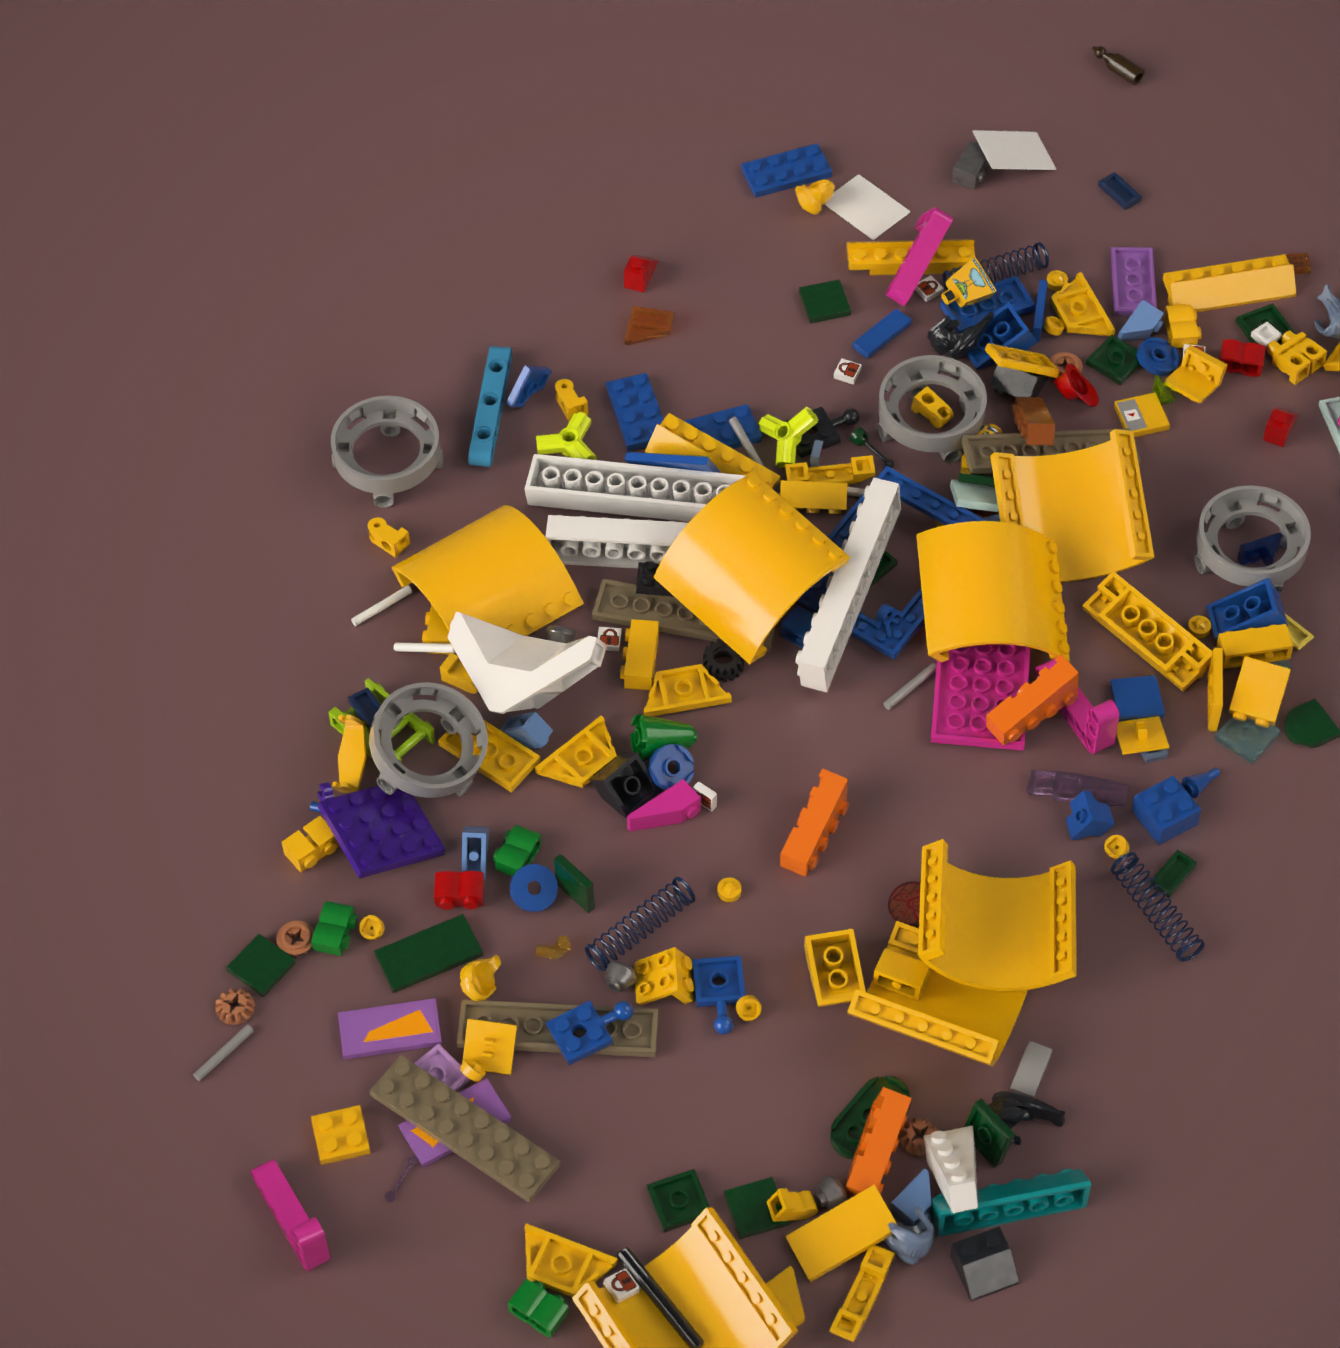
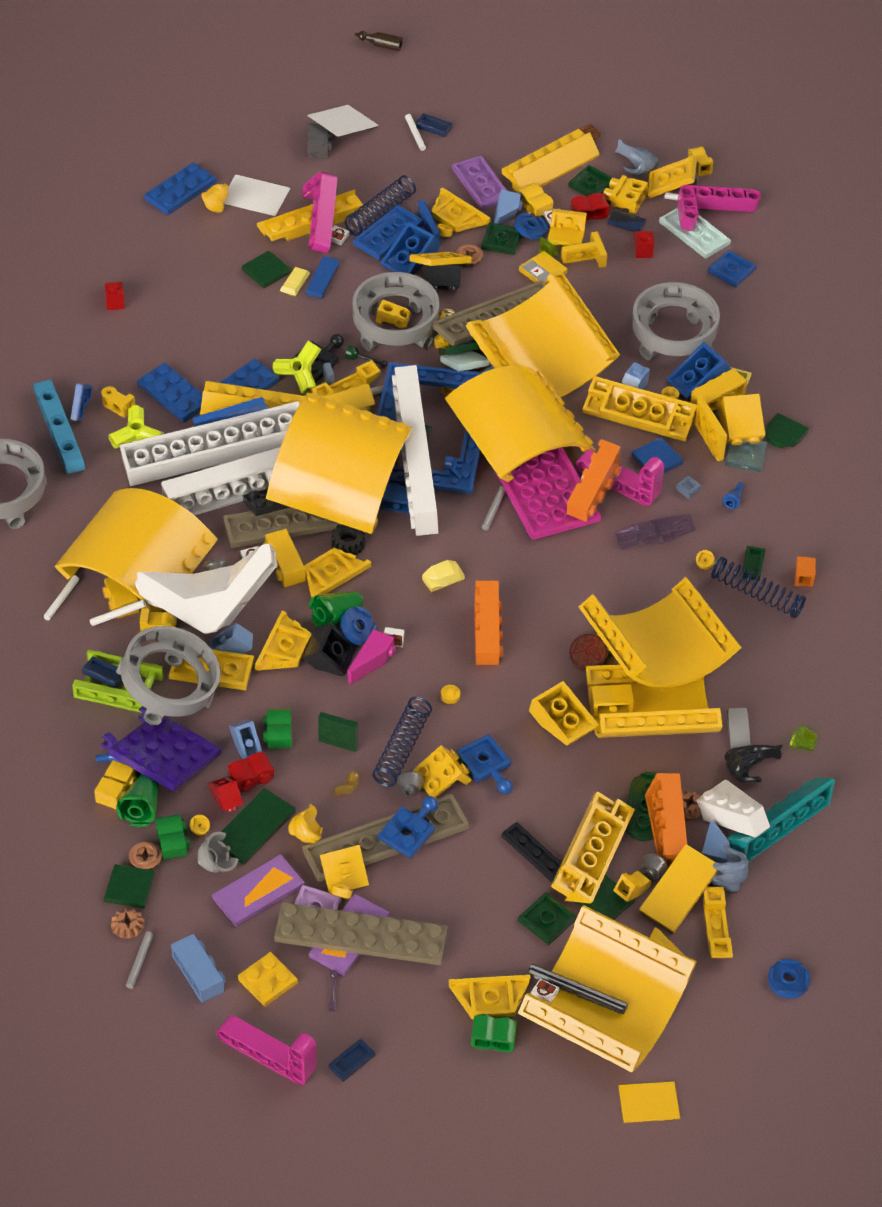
camera: 30 degrees left, 5 degrees down
(274, 1089) = (198, 967): none -> medium blue brick
(321, 874) = (139, 802): none -> green cone
(351, 755) = (108, 707): yellow piece -> none
(364, 969) = (214, 854): none -> light grey helmet
(373, 1267) = (351, 1060): none -> dark blue tile
(387, 537) = (36, 547): yellow leg -> none
(418, 903) = (226, 793): none -> red slope
(546, 882) = (317, 745): blue tile -> none
(648, 324) = (144, 328): clear orange wing -> none
(713, 1120) = (532, 850): none -> black tile
(745, 440) = (267, 381): light grey bar -> none
(748, 1008) = (516, 767): yellow tile -> none
(773, 1141) = (592, 849): none -> yellow slope
(804, 744) = (442, 575): none -> light yellow slope
(847, 371) = (313, 311): tile -> none
(848, 327) = (295, 281): none -> light yellow tile
(956, 344) = (375, 265): black hair -> none
(968, 285) = (371, 220): yellow torso -> none
(984, 1263) = (787, 867): black slope -> none
(990, 1133) = (741, 775): dark green tile -> none
(1033, 420) = (476, 295): dark orange brick -> none
(1056, 280) = (428, 197): yellow tile -> none
(1076, 386) = (486, 266): red piece -> none
(1088, 817) = (674, 546): blue brick -> none
(1093, 192) = (415, 132): none -> white bar
(1102, 1115) = (803, 739): none -> clear neon green slope
(1141, 735) = (678, 479): yellow piece -> none
(1166, 592) = (636, 376): none -> medium blue slope
(1166, 810) = (724, 522): blue brick -> none
(1202, 411) = (586, 251): none -> yellow bracket
(1226, 909) = (805, 571): none -> orange brick
(1263, 548) = (684, 327): clear blue slope -> none
(1265, 334) = (597, 186): white tile -> none
(1278, 390) = (626, 221): none -> tile

